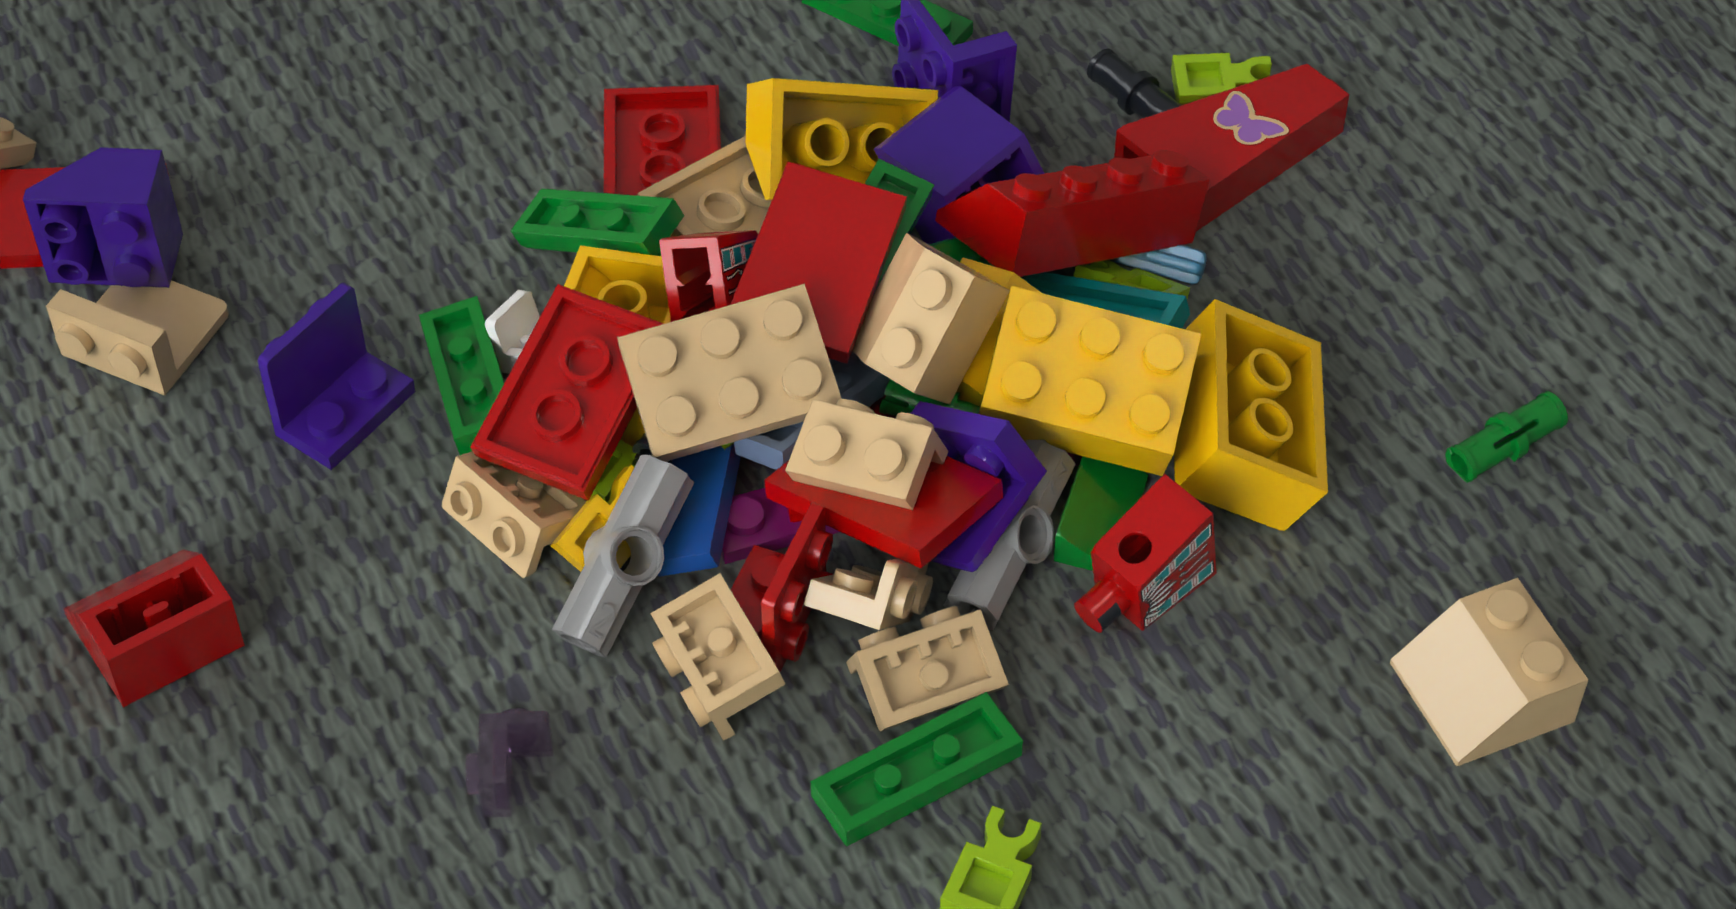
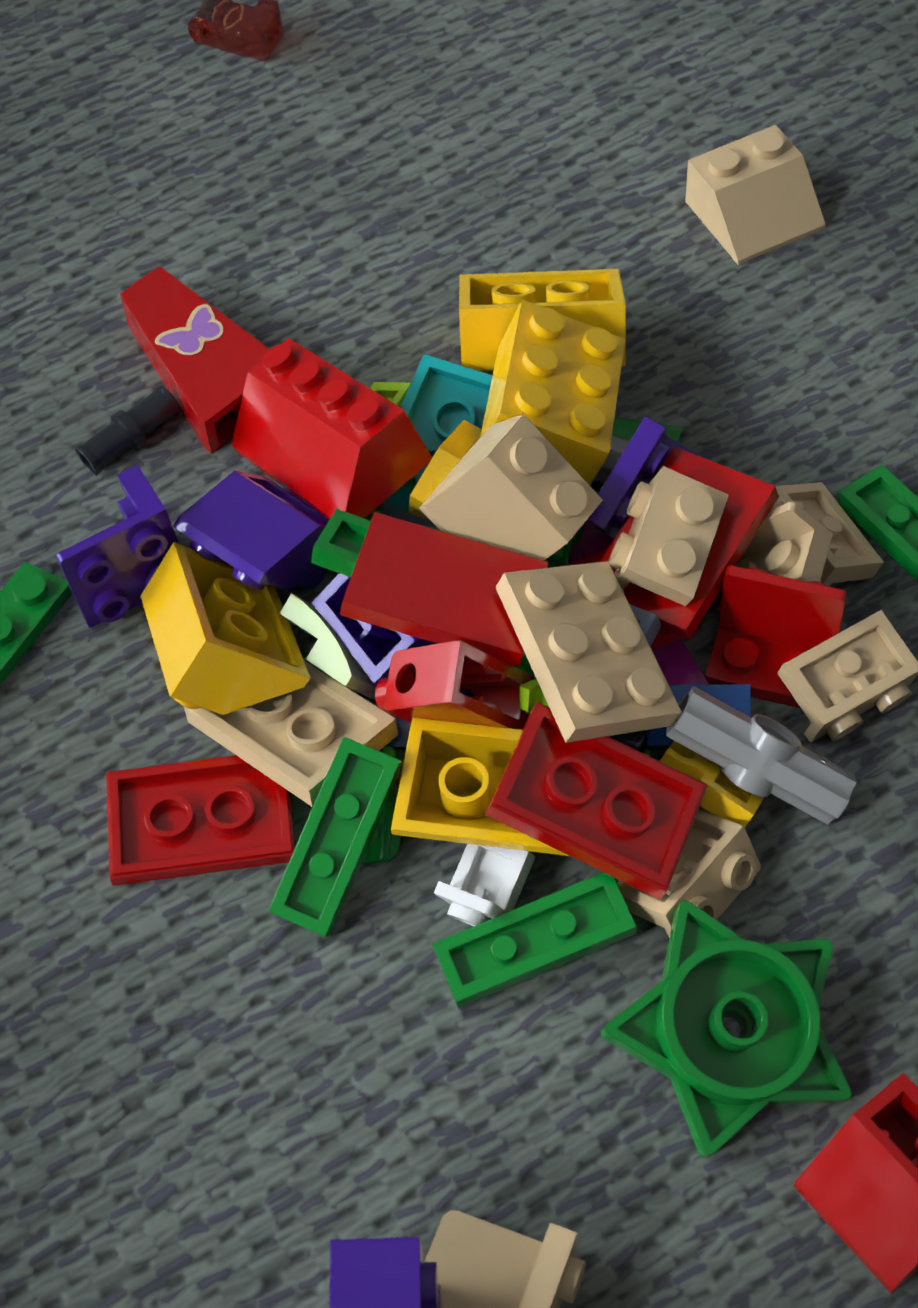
camera: 90 degrees left, 5 degrees up
(325, 384) = (568, 1063): dark purple bracket -> none
(339, 511) = (772, 996): none -> green plate
(1150, 558) = (695, 382): red torso -> none
(1208, 74) = (115, 376): lime plate -> none
(1535, 418) = (513, 192): green pin -> none

